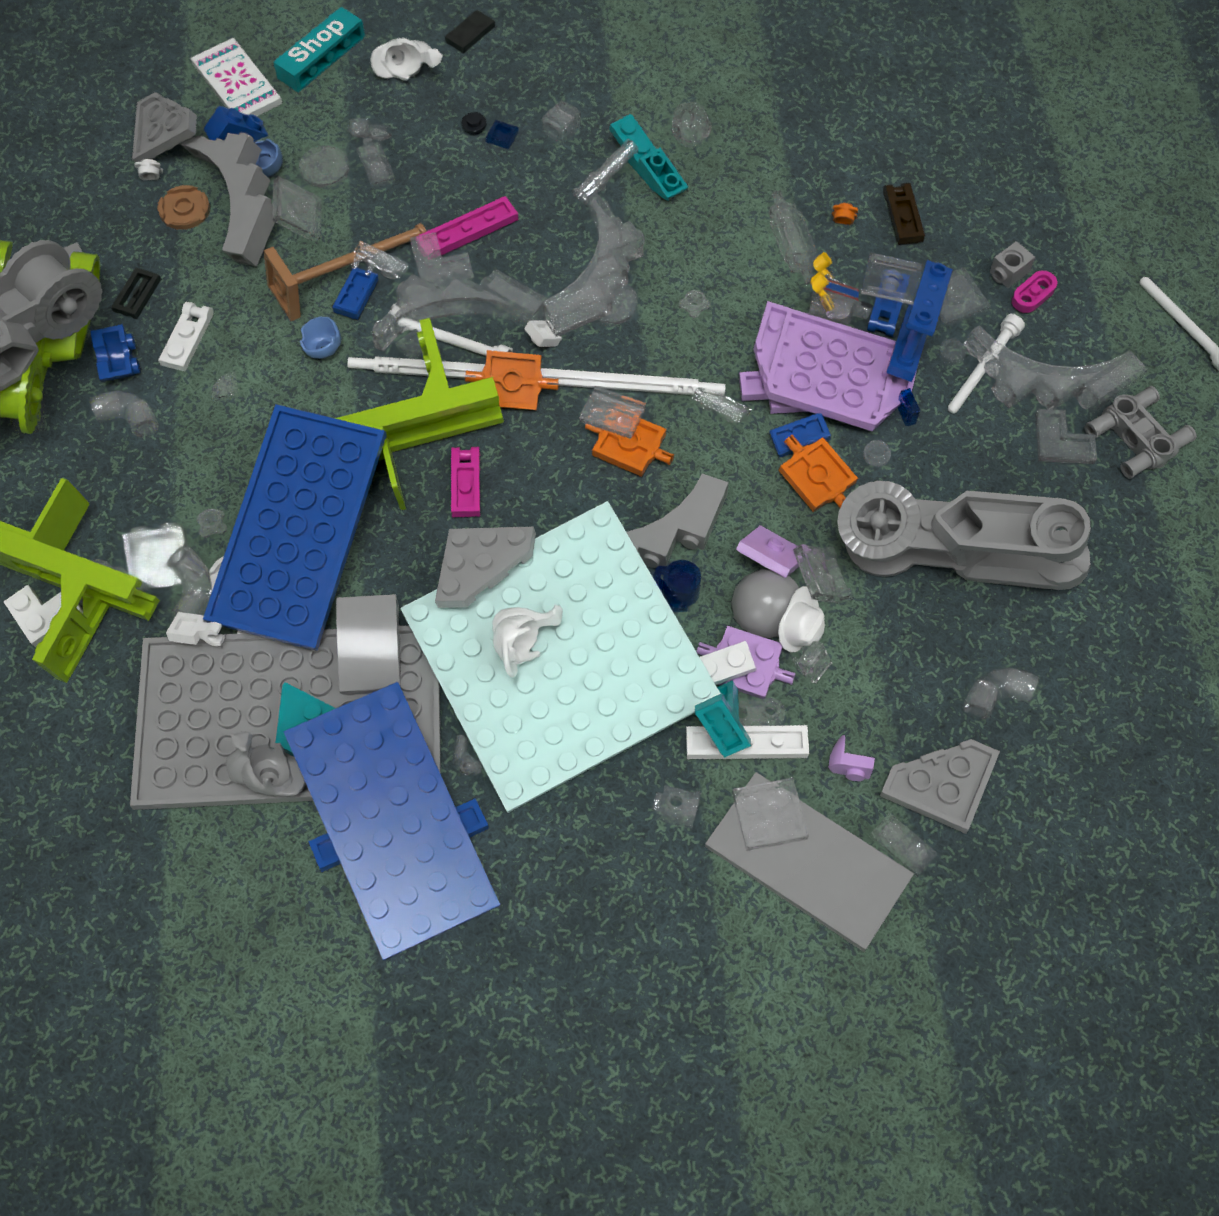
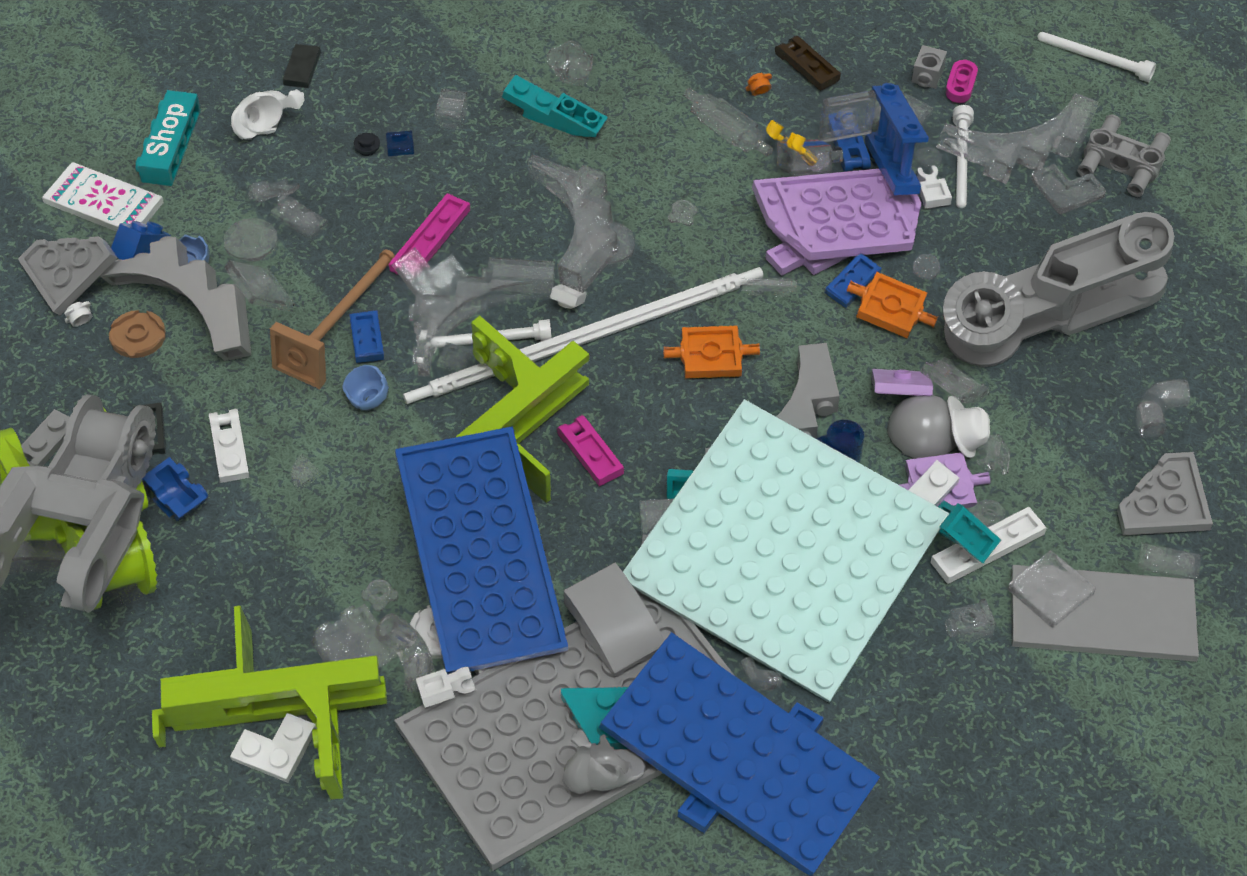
camera: 30 degrees left, 10 degrees down
(126, 406) = (223, 530): clear cylinder -> none
(387, 264) = (373, 296): clear plate -> none
(480, 560) = (668, 500): light grey plate -> none
(515, 377) = (576, 328): orange plate -> none
(517, 631) = (745, 541): white piece -> none
(597, 180) = (523, 144): clear pin -> none
(612, 412) = (685, 330): clear plate -> none
(853, 766) = (1085, 520): lavender plate -> none
(908, 408) = (928, 217): clear blue tile -> none
(934, 382) = (933, 191): none -> white plate

